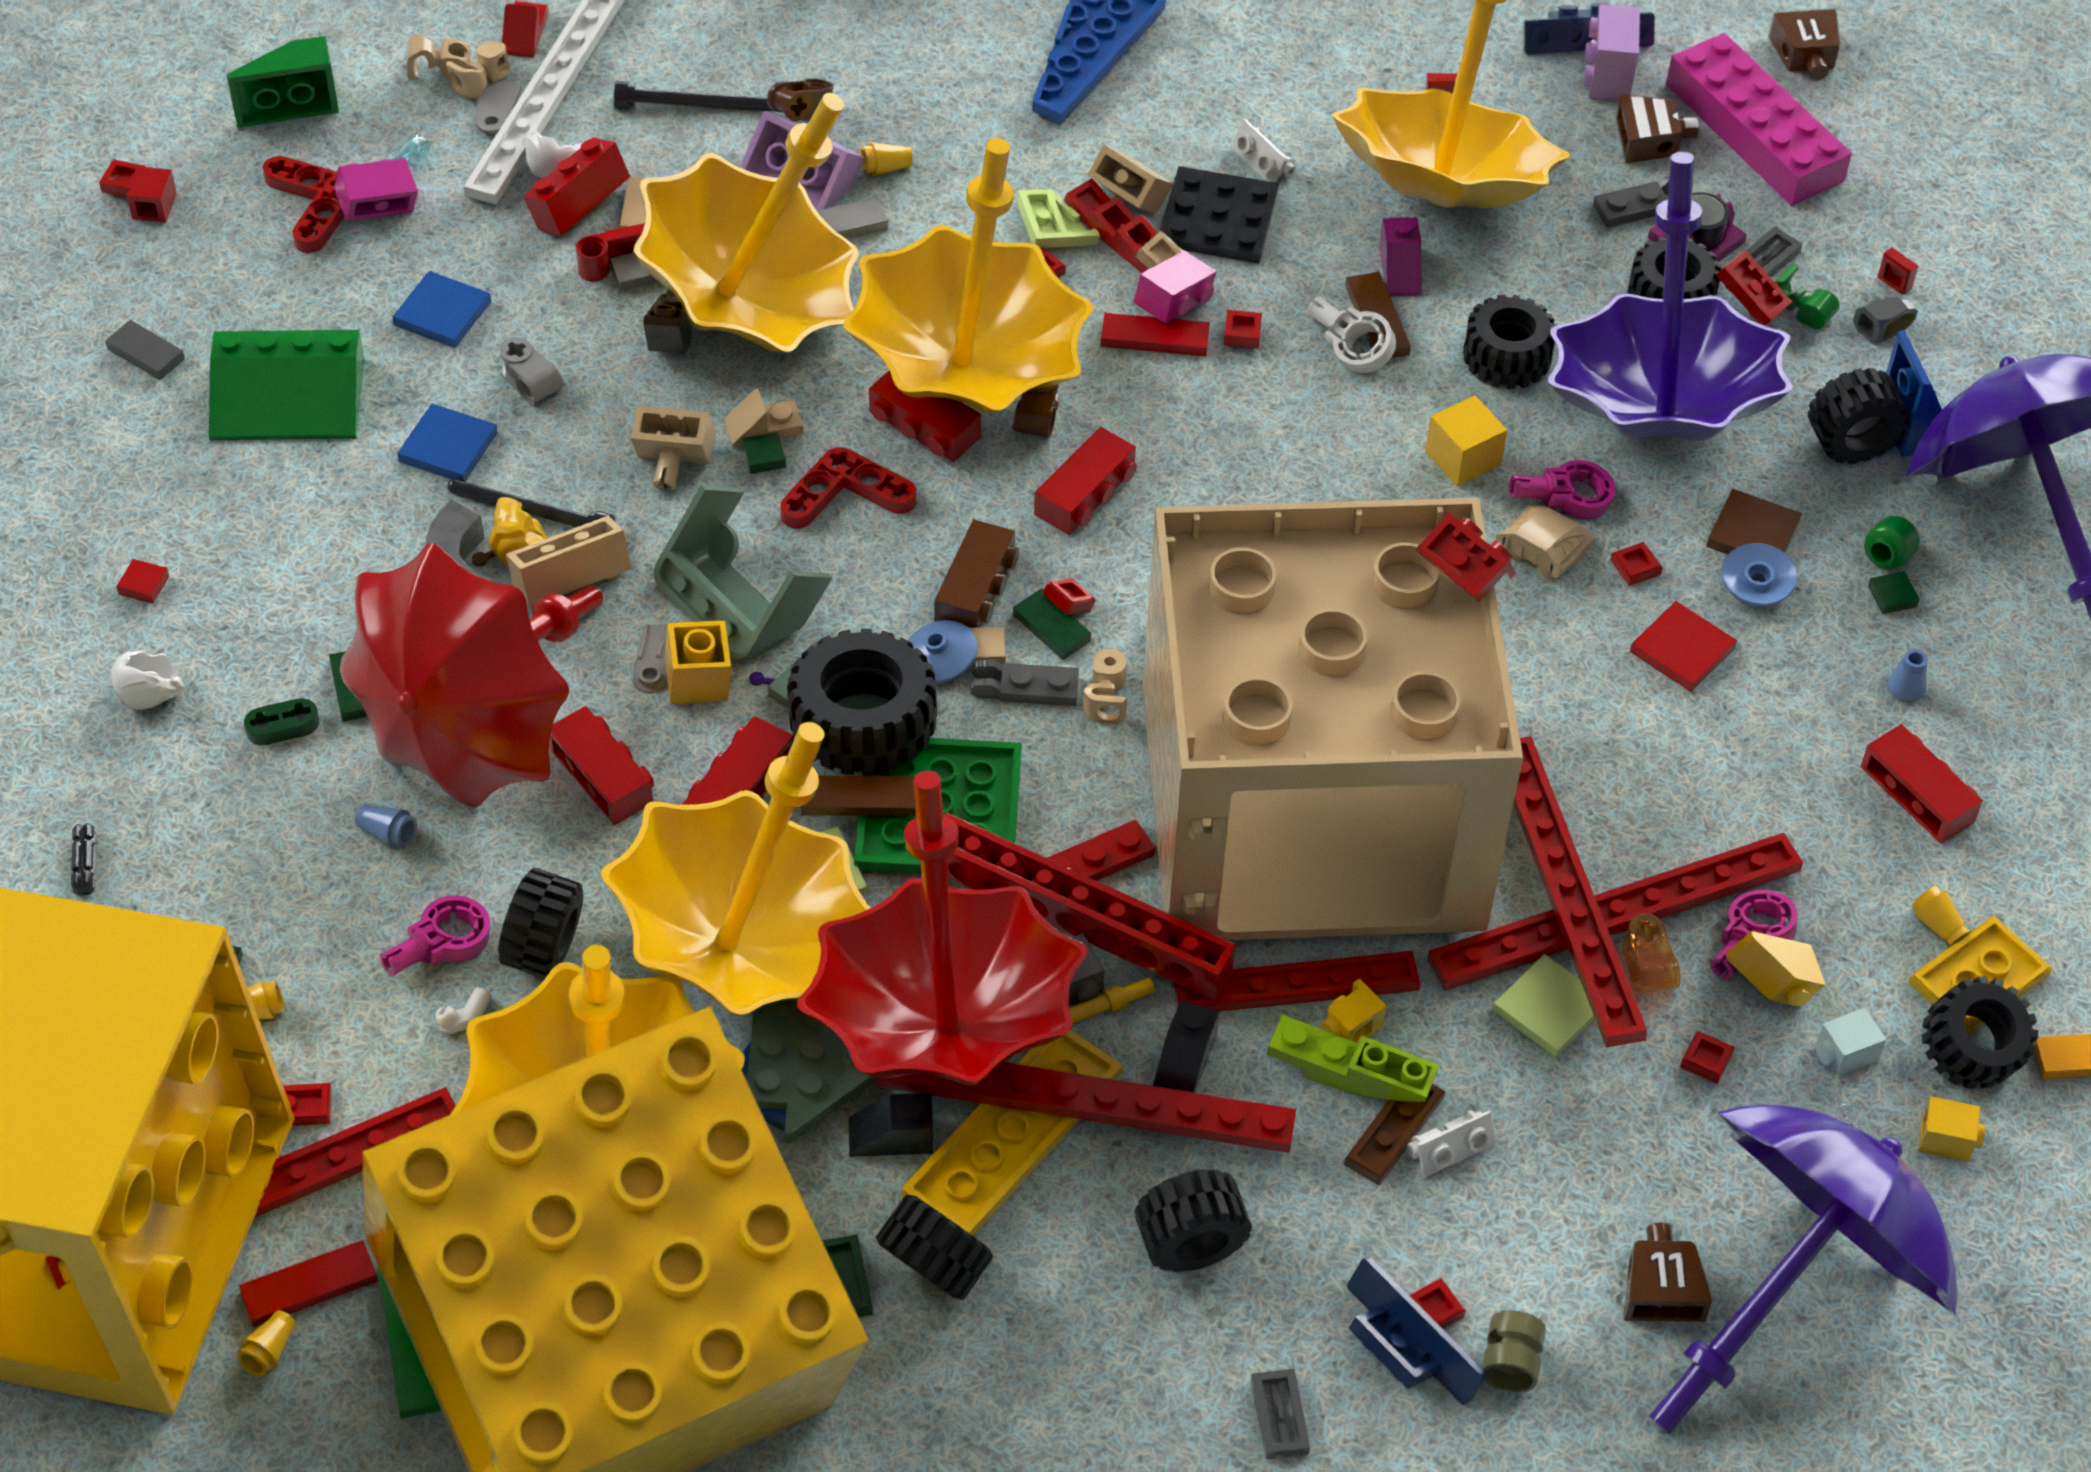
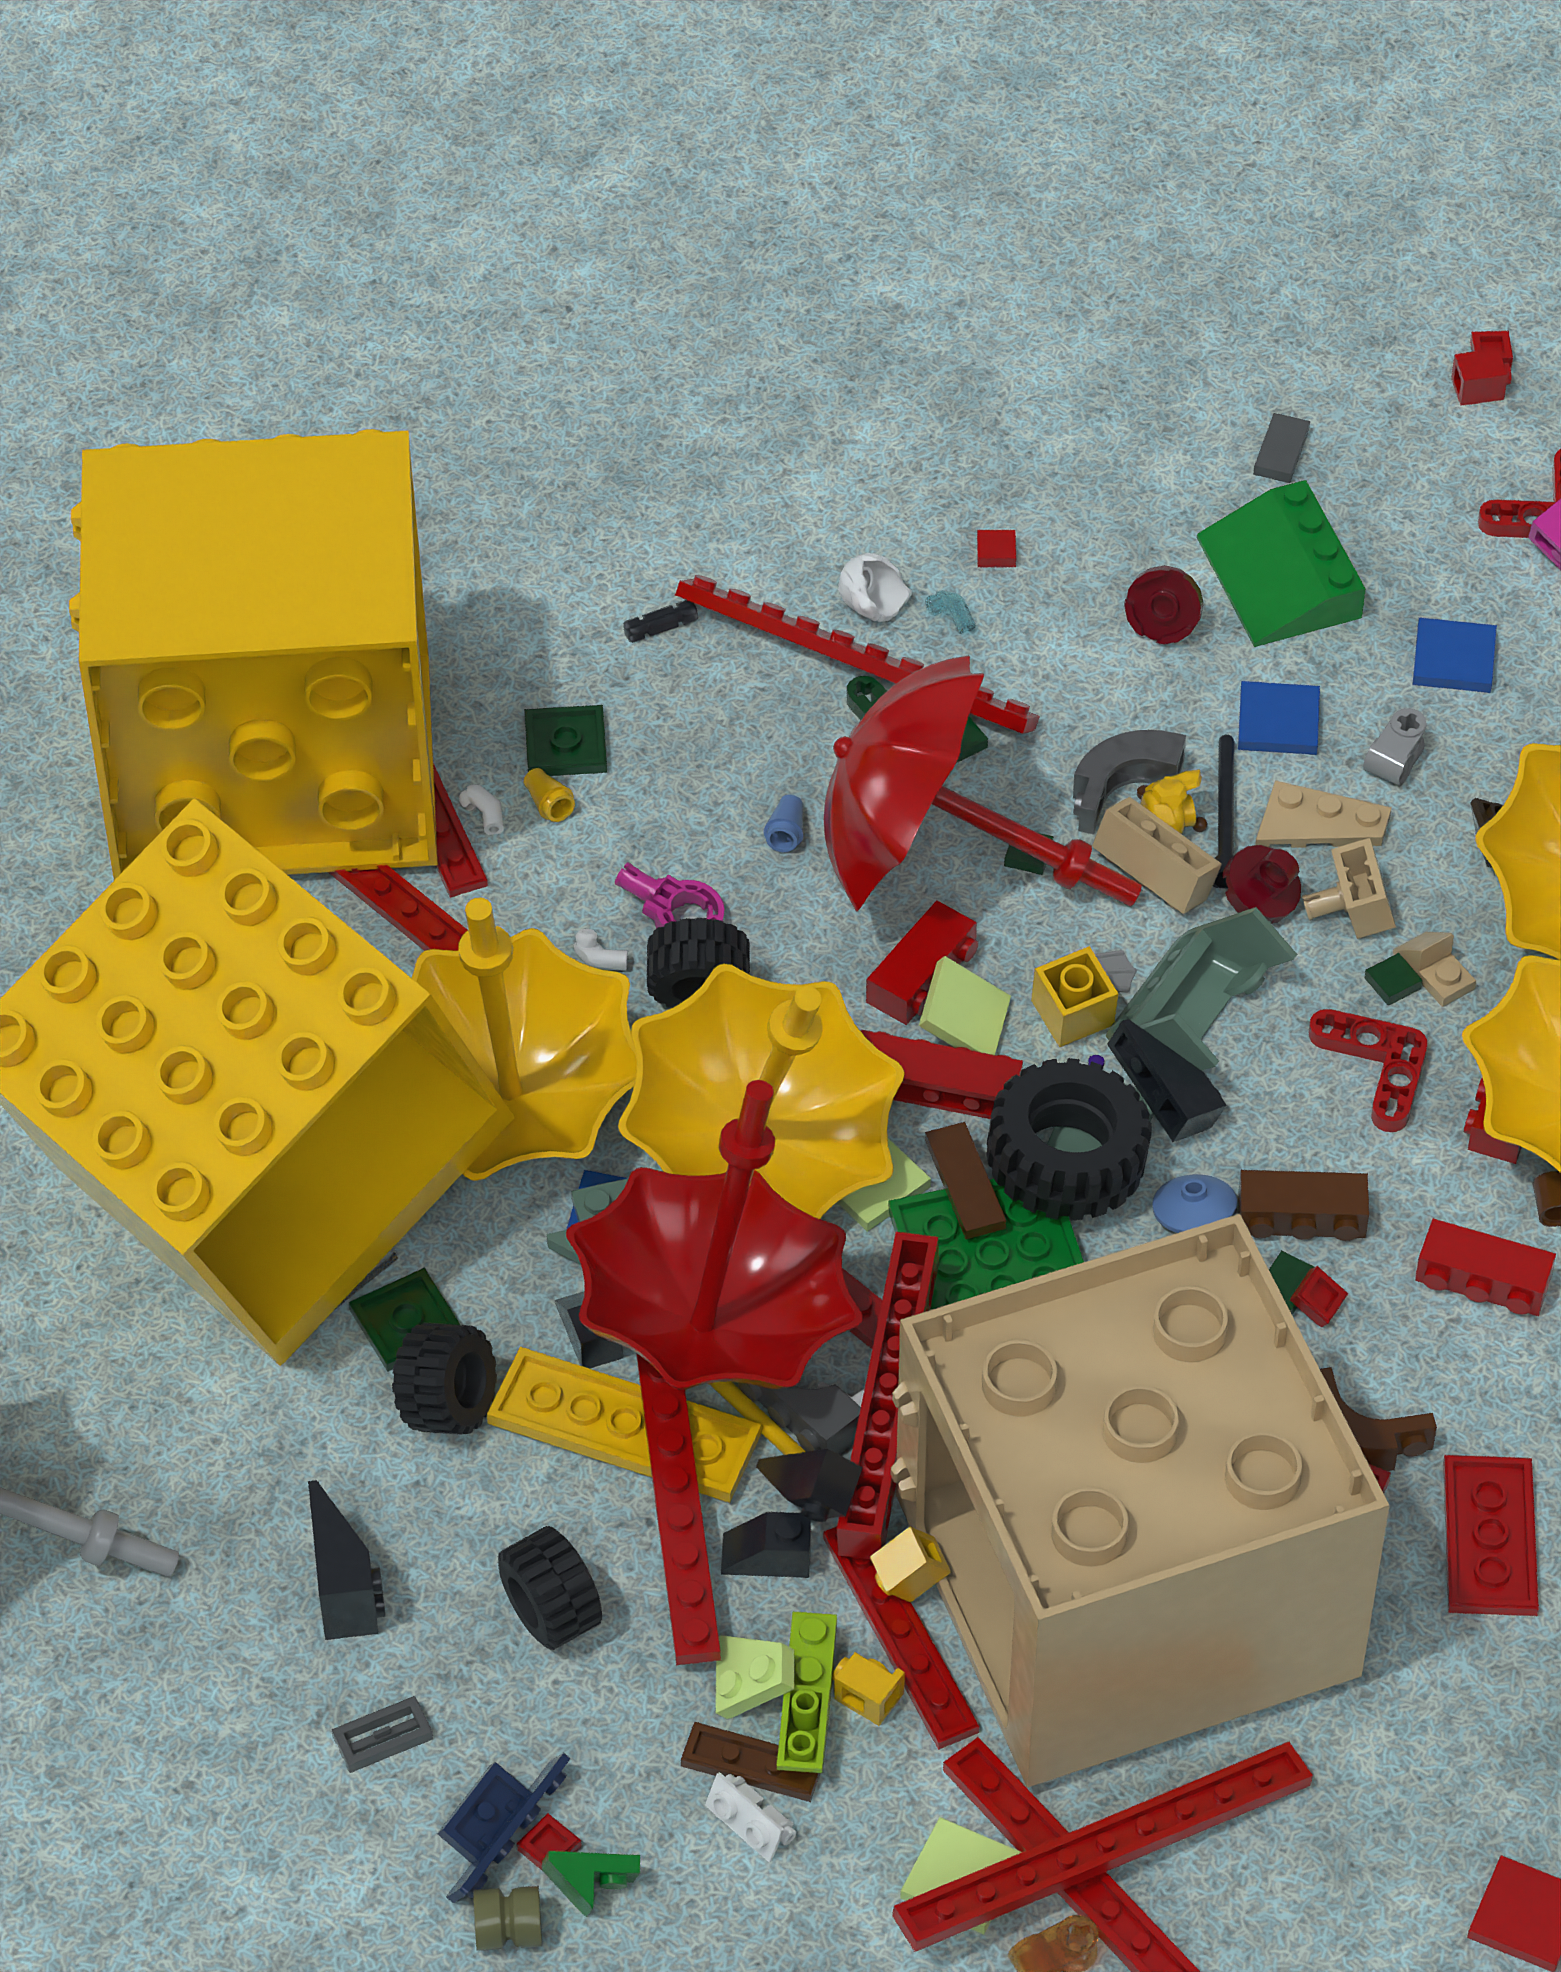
camera: 75 degrees right, 0 degrees up
(194, 629) = (951, 605): none -> clear light blue arm
(202, 723) = (840, 646): none -> red plate
(293, 472) = (1164, 604): none -> dark red tile
(570, 451) = (1312, 817): none -> tan wing
(633, 498) = (1263, 880): none -> dark red tile
(671, 746) = (964, 1008): none -> yellowish green tile
(811, 620) = (1169, 1084): none -> black slope
(1103, 1392) = (347, 1584): none -> black slope
(1163, 982) = (814, 1481): none -> black slope
(1256, 943) = (909, 1564): none -> yellow brick
(1322, 1093) = (751, 1674): none -> yellowish green wing
(1465, 557) = (1282, 1502): red bracket -> none
(1486, 1279) = (577, 1871): none -> green slope

